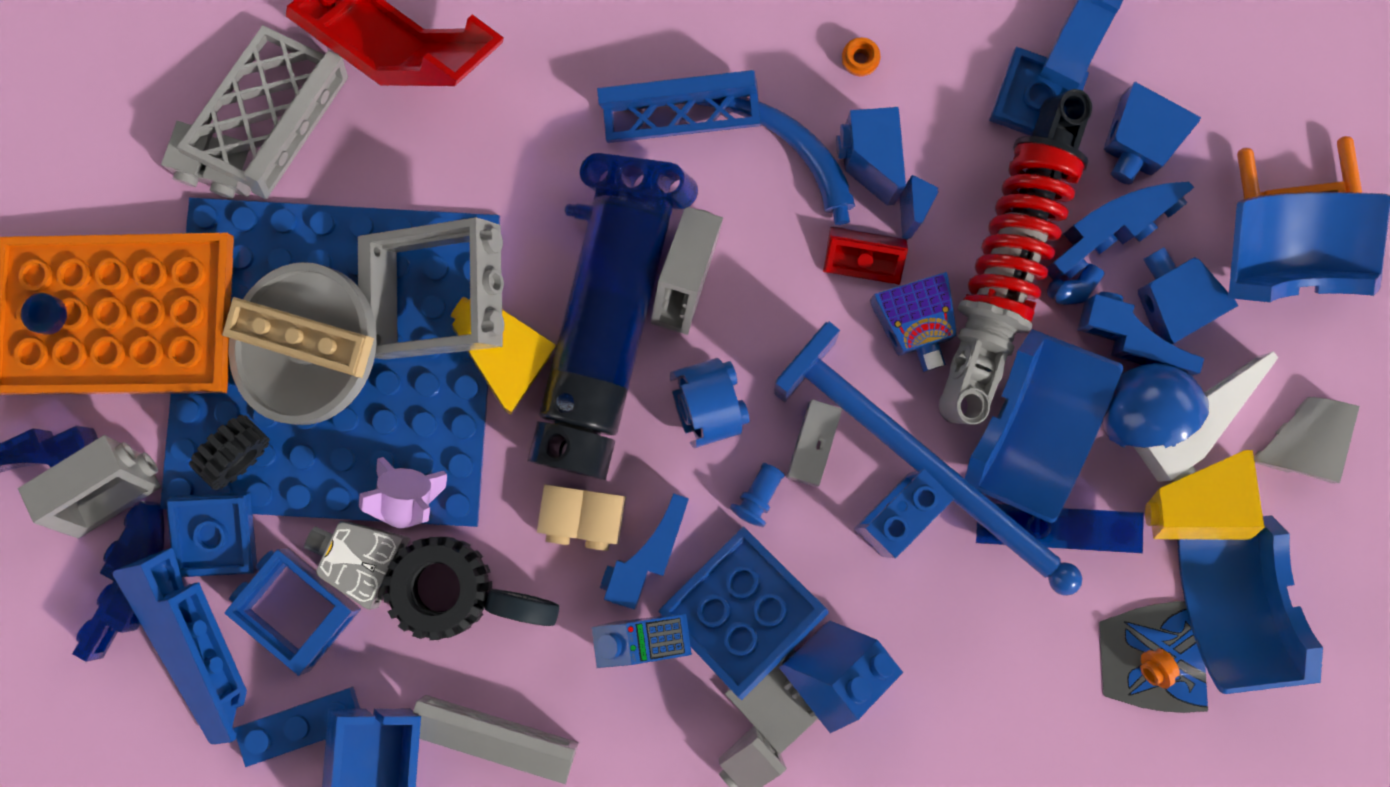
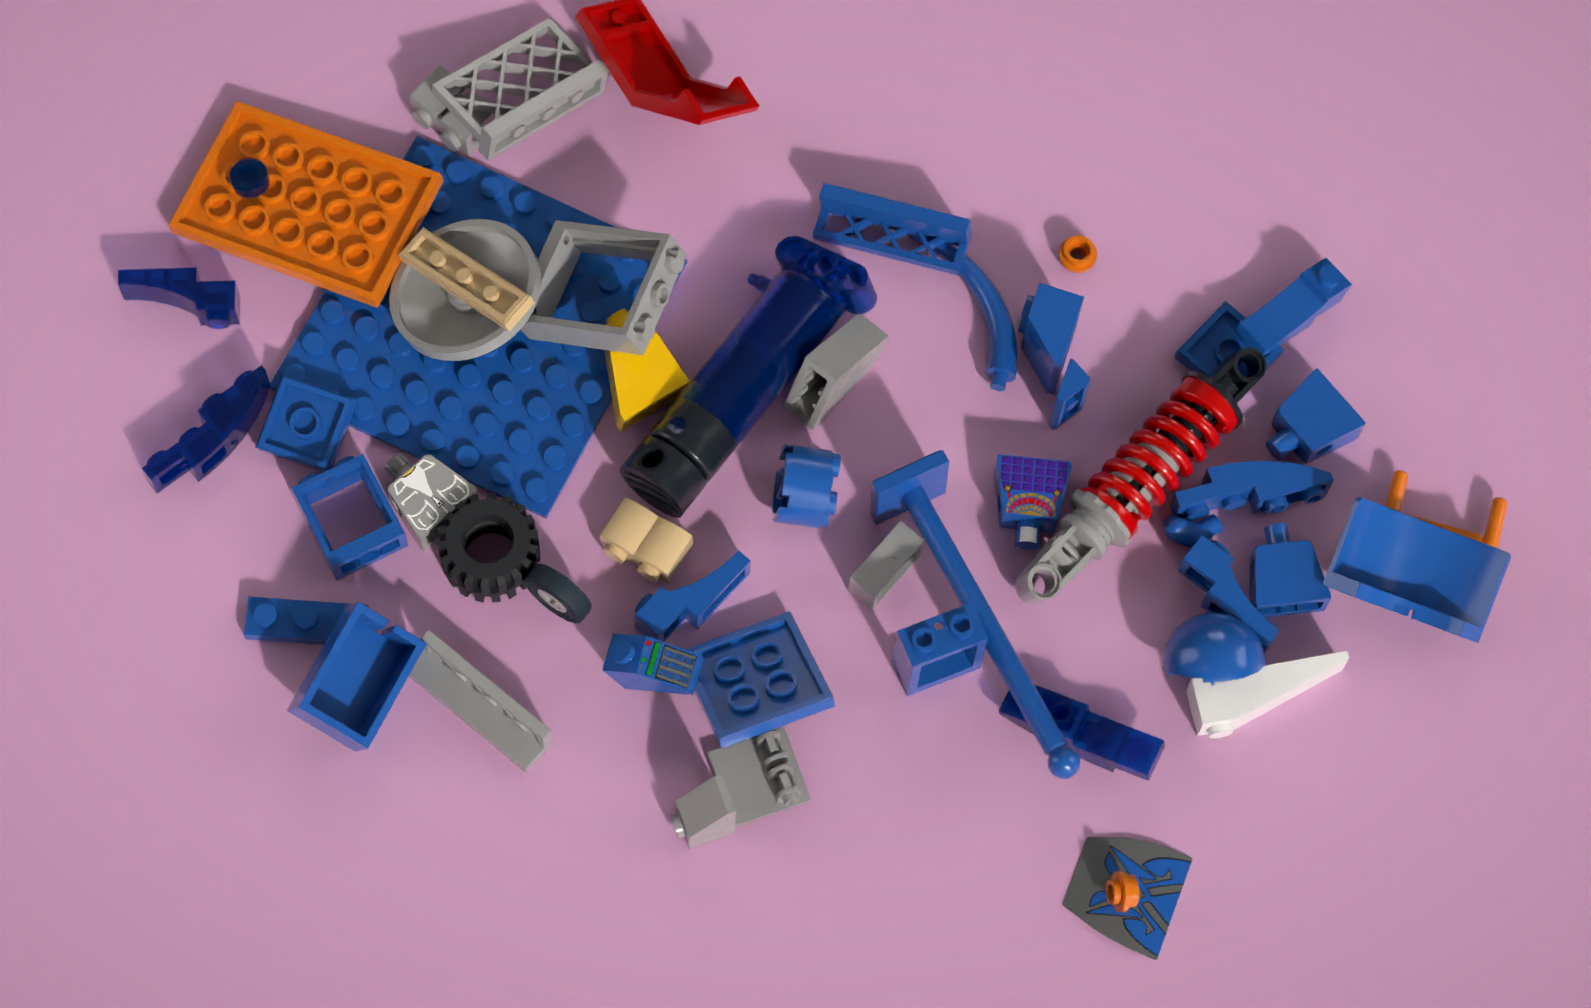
camera: 20 degrees right, 15 degrees down
(90, 487) = (225, 316): light grey window -> none
(186, 641) = (244, 501): blue wedge -> none
(229, 452) = (360, 353): black tyre -> none
(402, 495) = (493, 453): lavender piece -> none
(758, 496) = (812, 593): blue pin -> none
(840, 674) = (822, 770): blue slope -> none
(865, 255) = (1006, 425): red slope -> none
(1045, 425) = (1108, 631): blue panel -> none
(1210, 503) = (1228, 760): yellow slope -> none
(1245, 614) = (1225, 862): blue panel -> none
(1313, 440) = (1355, 753): light grey slope -> none

